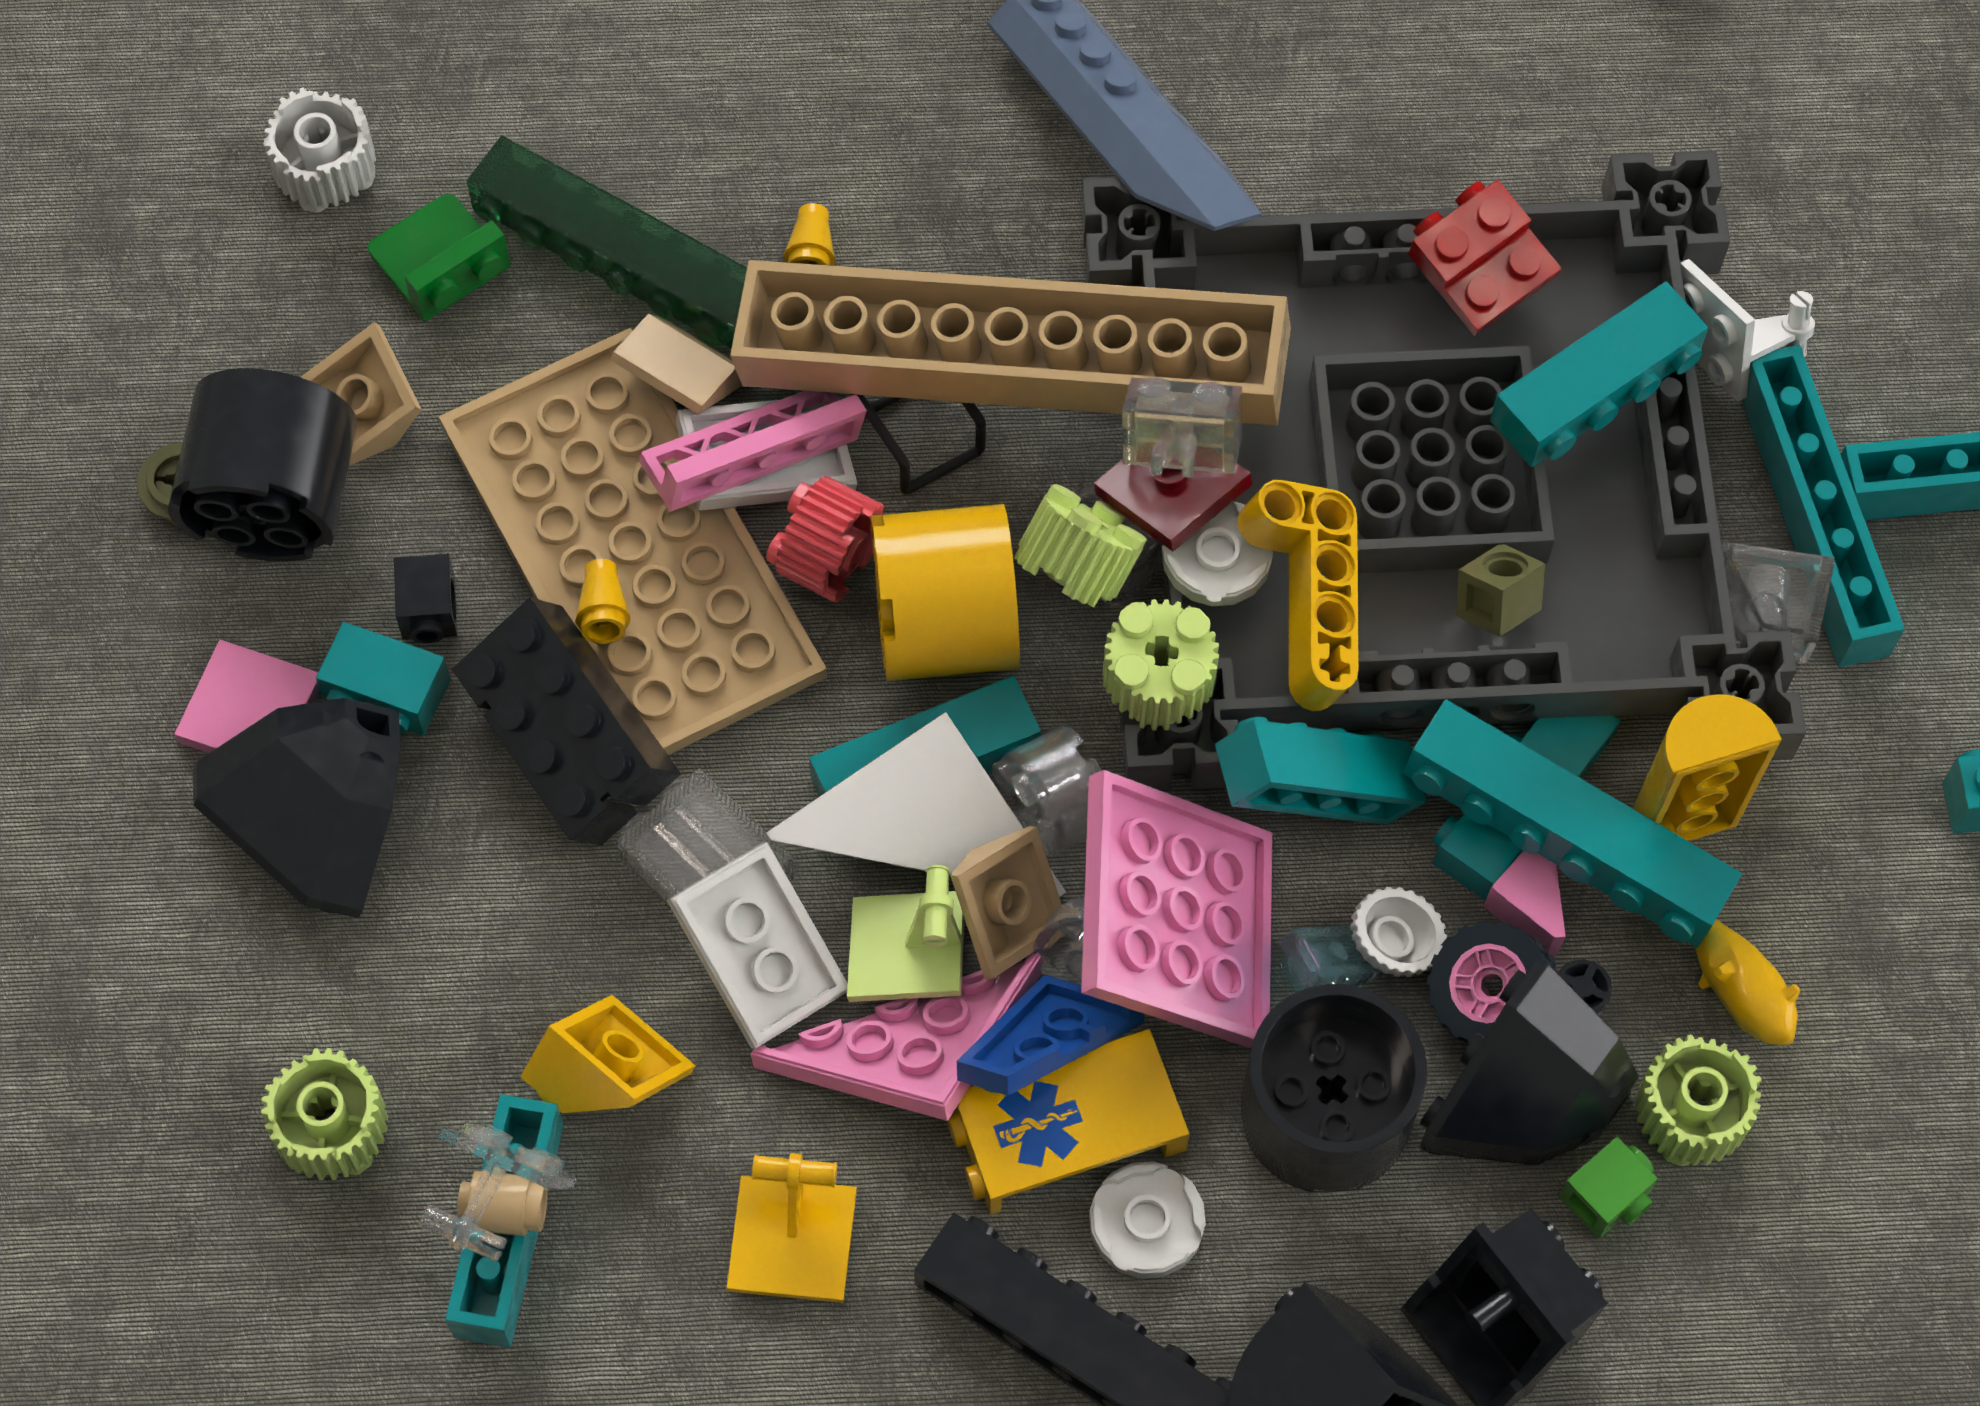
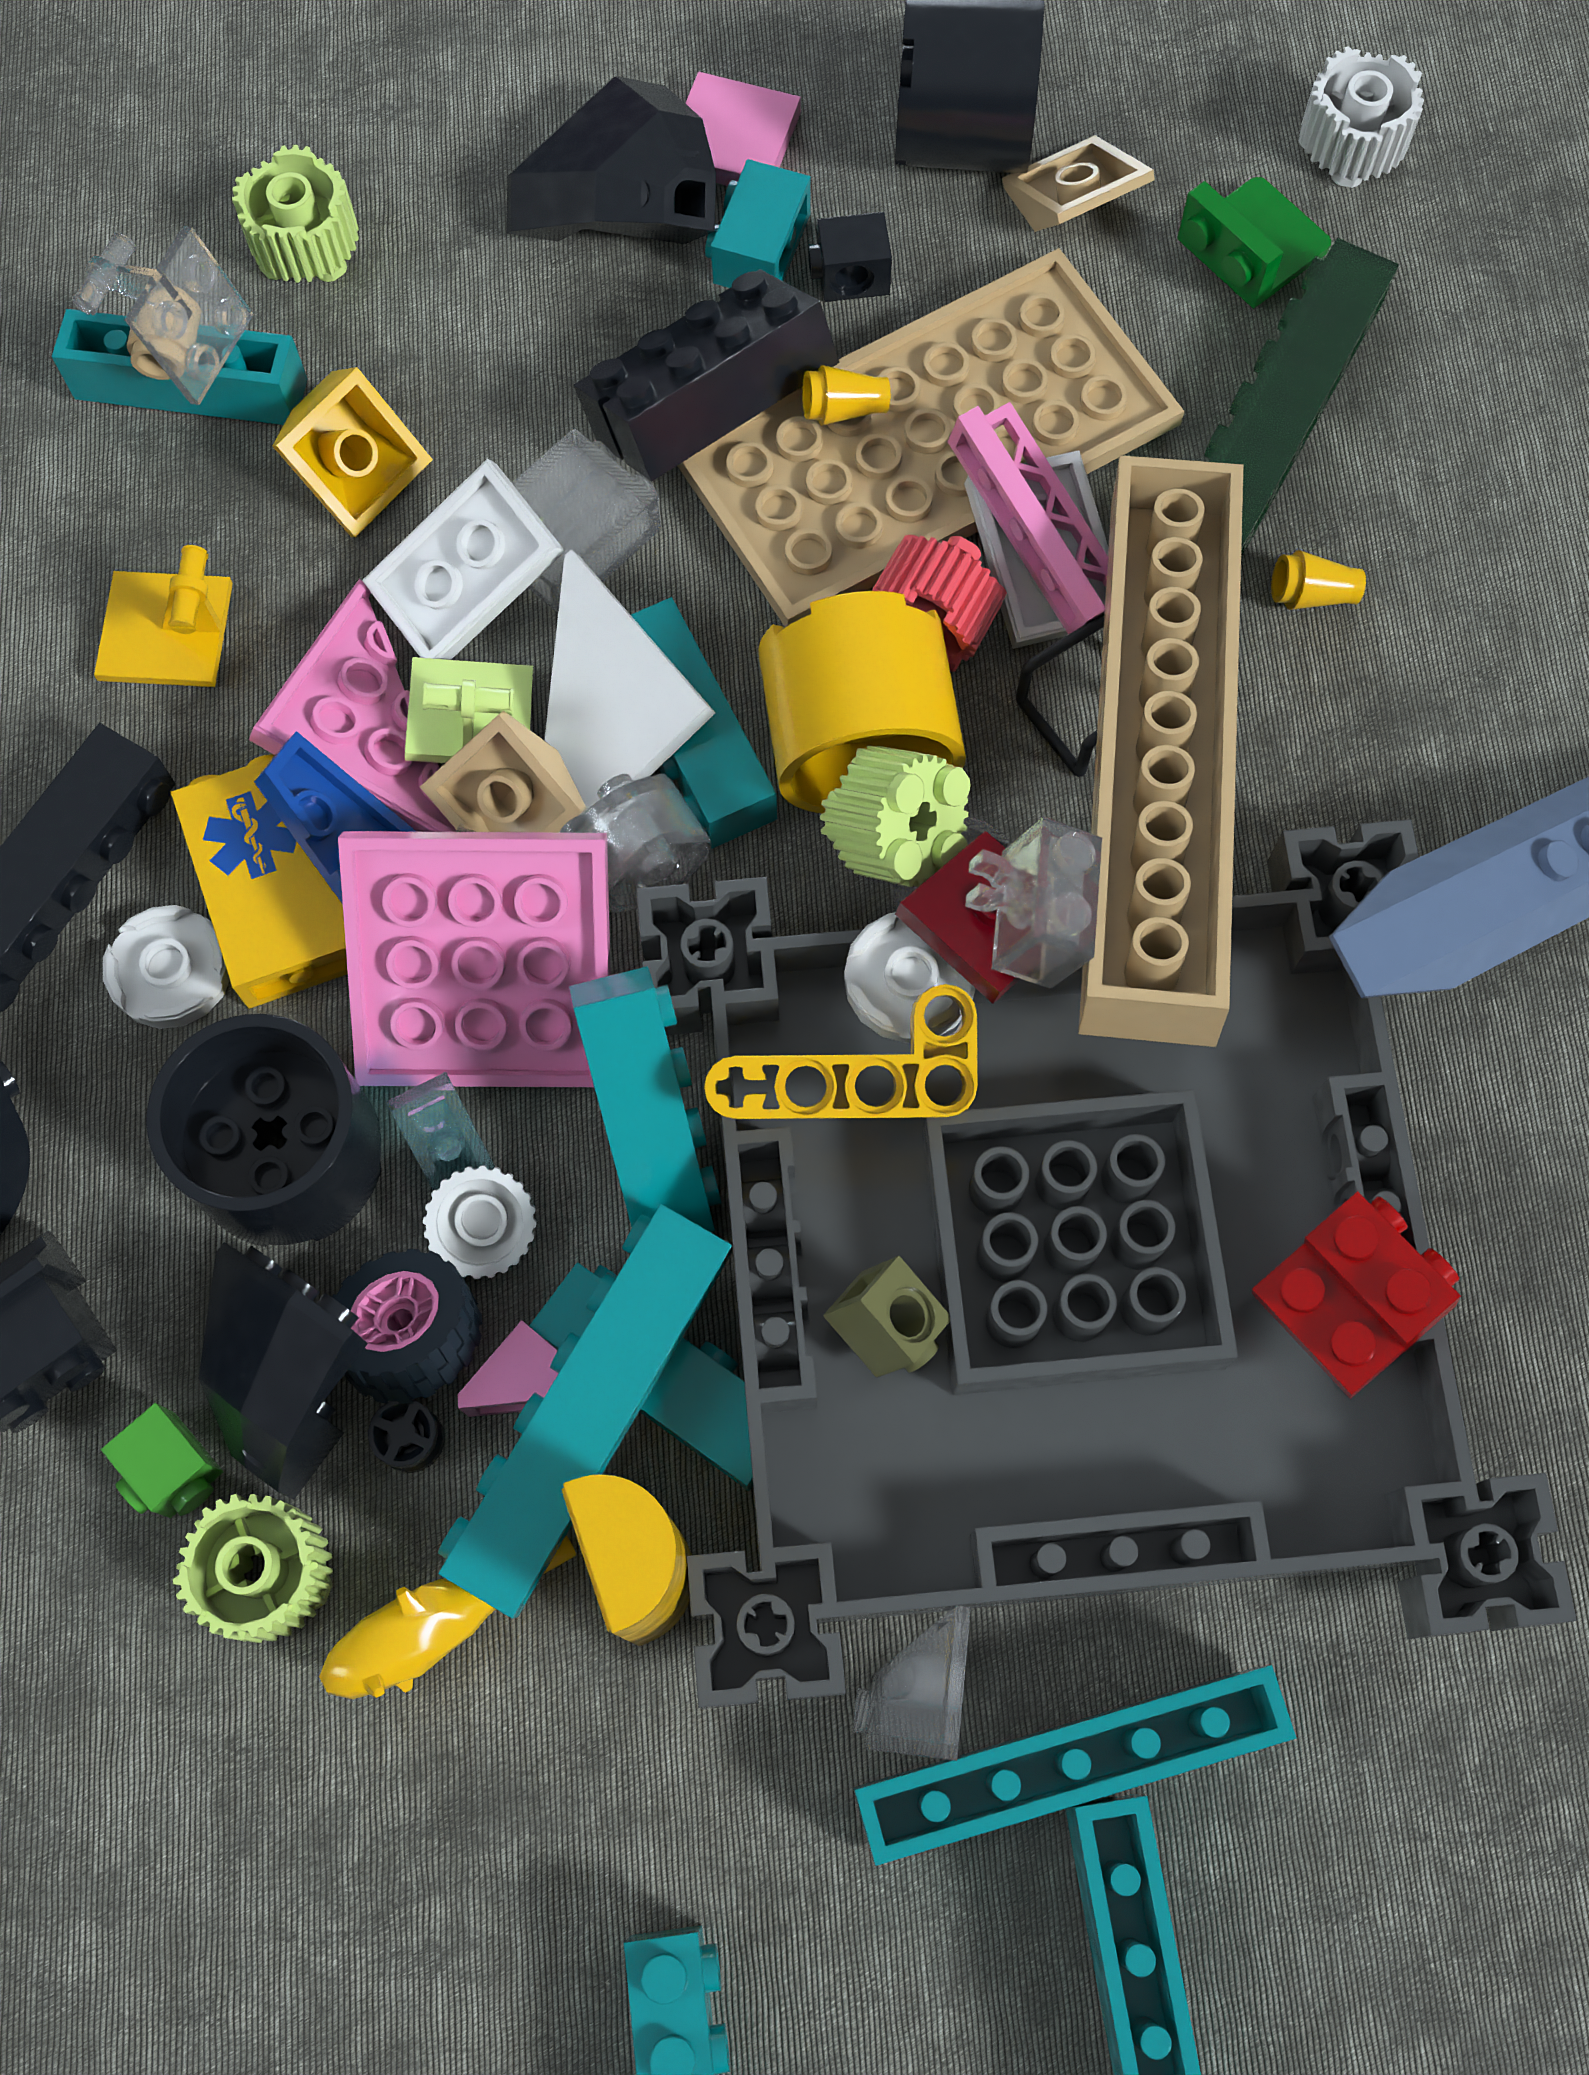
camera: 90 degrees right, 5 degrees up
(677, 364) = (1137, 424): tan slope -> none
(1165, 637) = (746, 869): yellowish green brick -> none
(1599, 375) = (1193, 1441): teal brick -> none
(1735, 336) = (1295, 1662): white plate -> none

